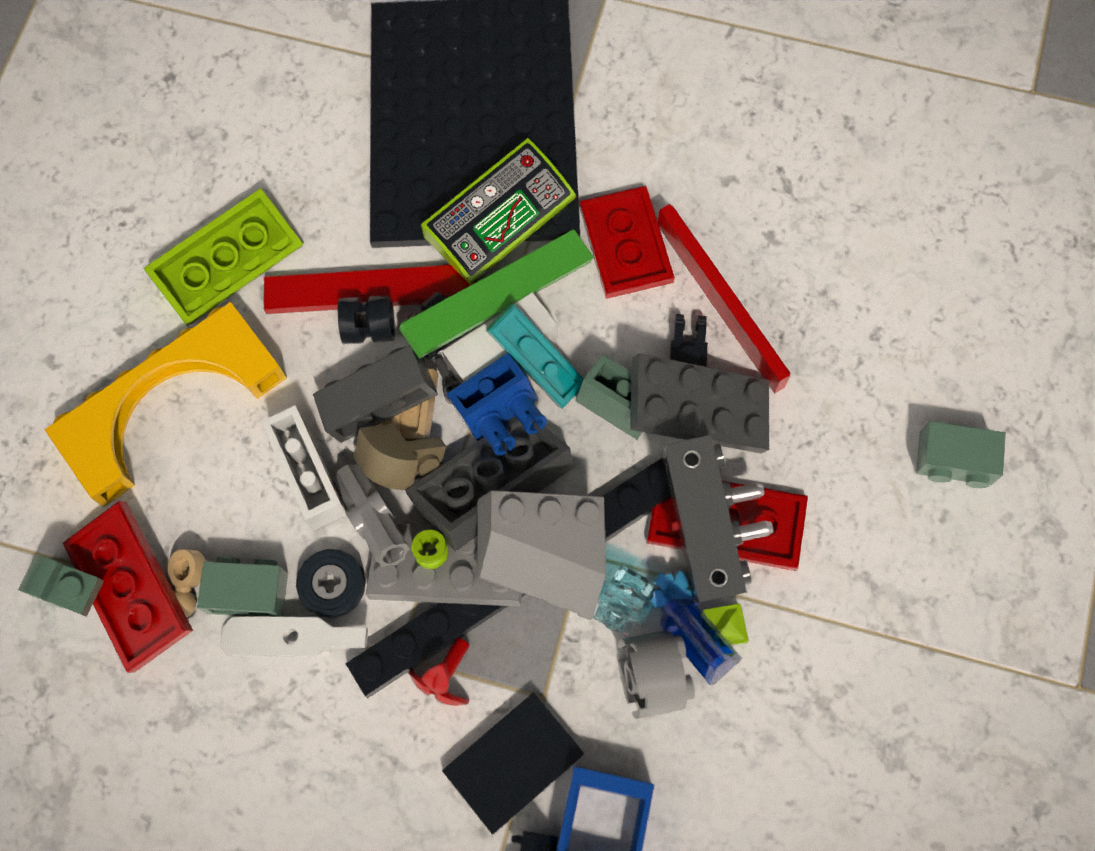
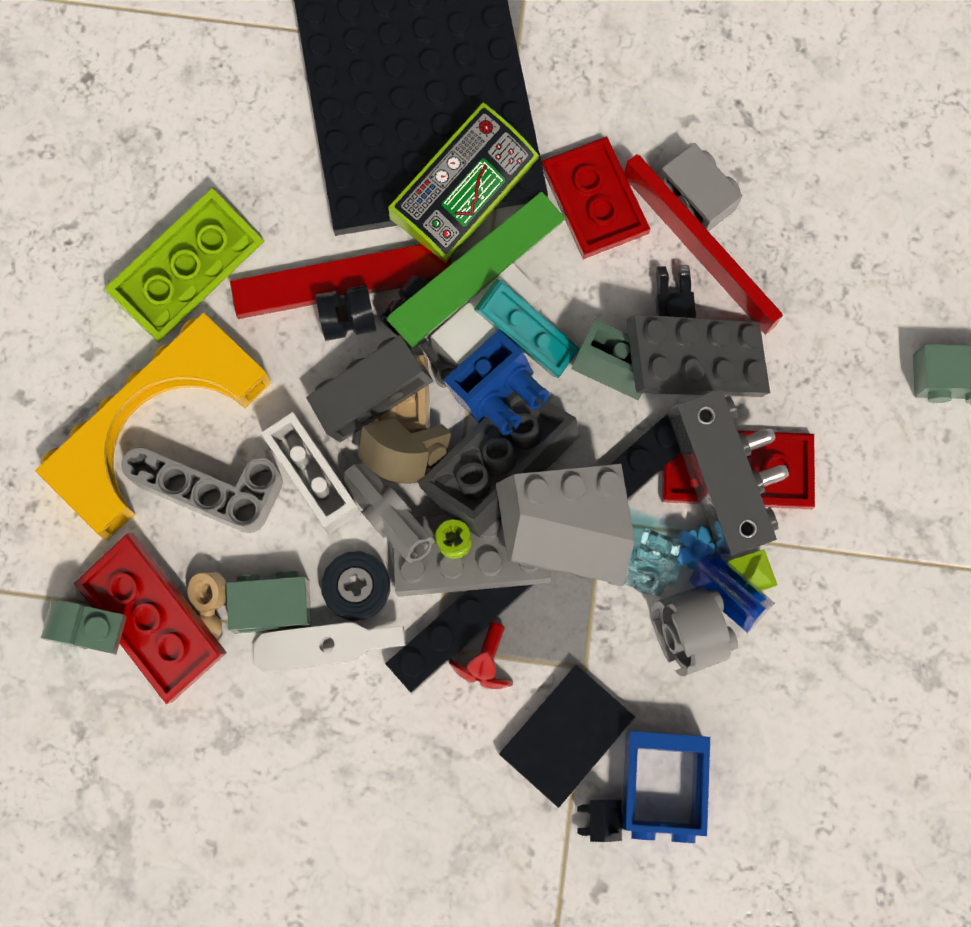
camera: 15 degrees left, 5 degrees up
(197, 465) = (199, 484): none -> light grey beam
(730, 243) = (702, 186): none -> light grey brick

